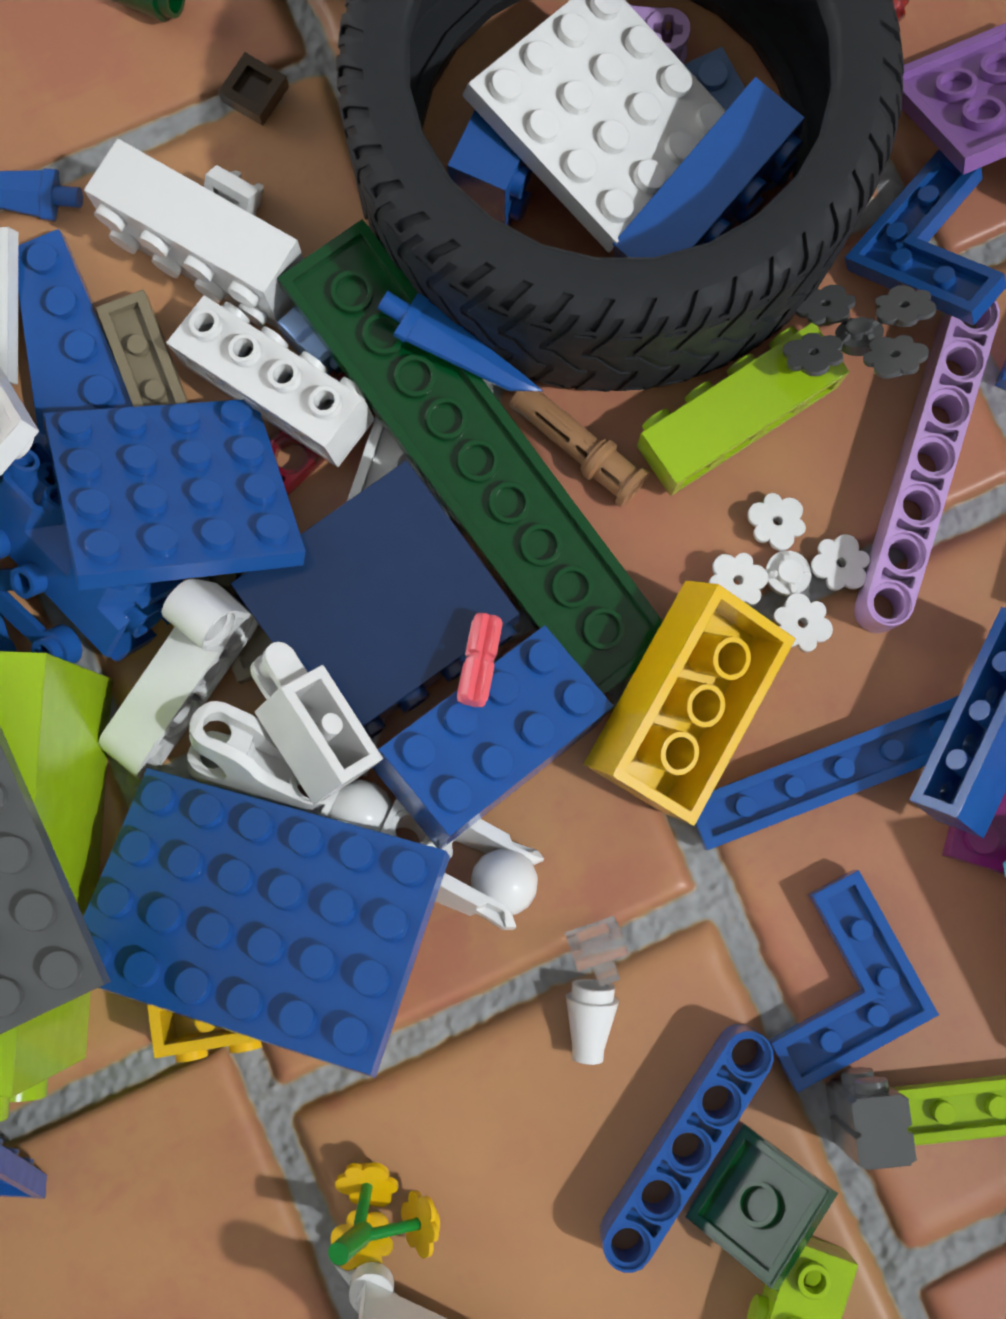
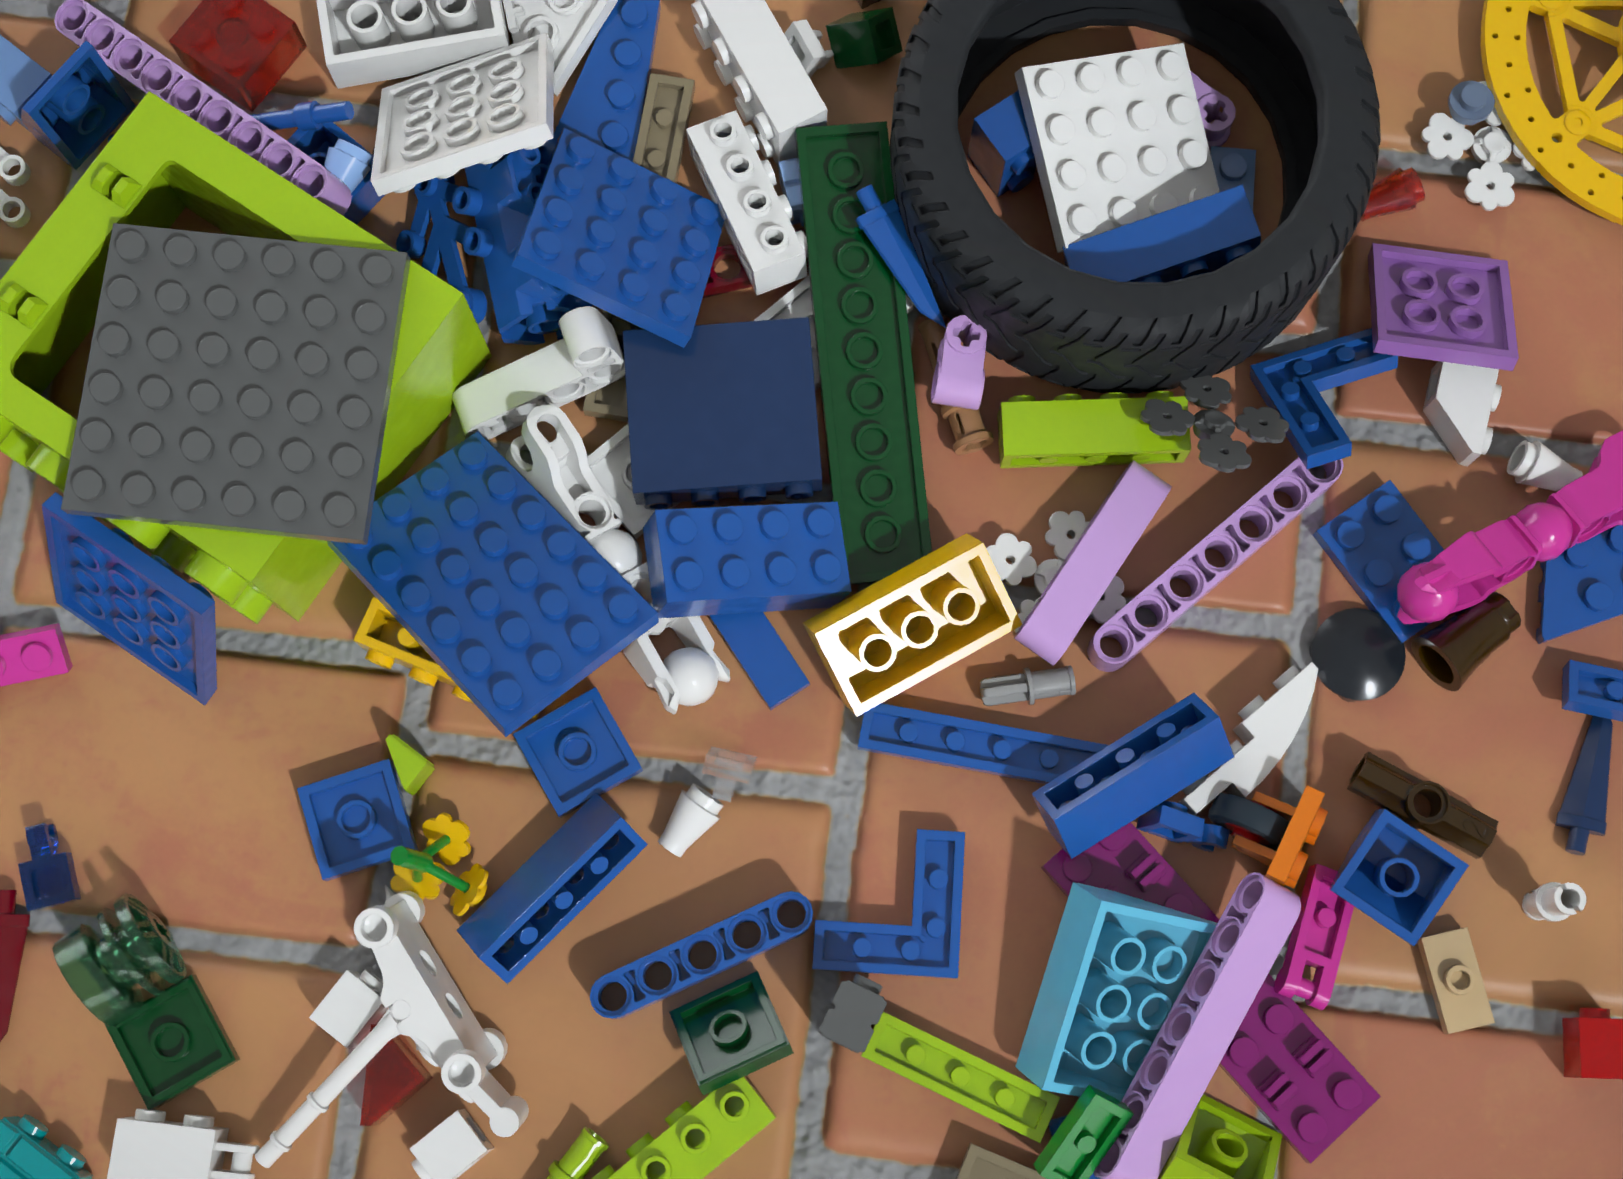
camera: 30 degrees right, 5 degrees down
(268, 1223) = (356, 819): none -> blue plate
(283, 152) = (864, 38): none -> dark green panel
(283, 1135) = (410, 765): none -> lime slope
(311, 723) = (617, 465): white brick -> none
(446, 1022) = (577, 752): none -> blue plate
(479, 664) = (769, 491): coral piece -> none
(499, 1179) = (551, 888): none -> blue brick
(561, 816) = (762, 655): none -> blue tile
(581, 420) = (959, 368): none -> lavender piece
(820, 537) = (1092, 563): none -> lavender beam
(828, 690) = (1028, 686): none -> light grey axle

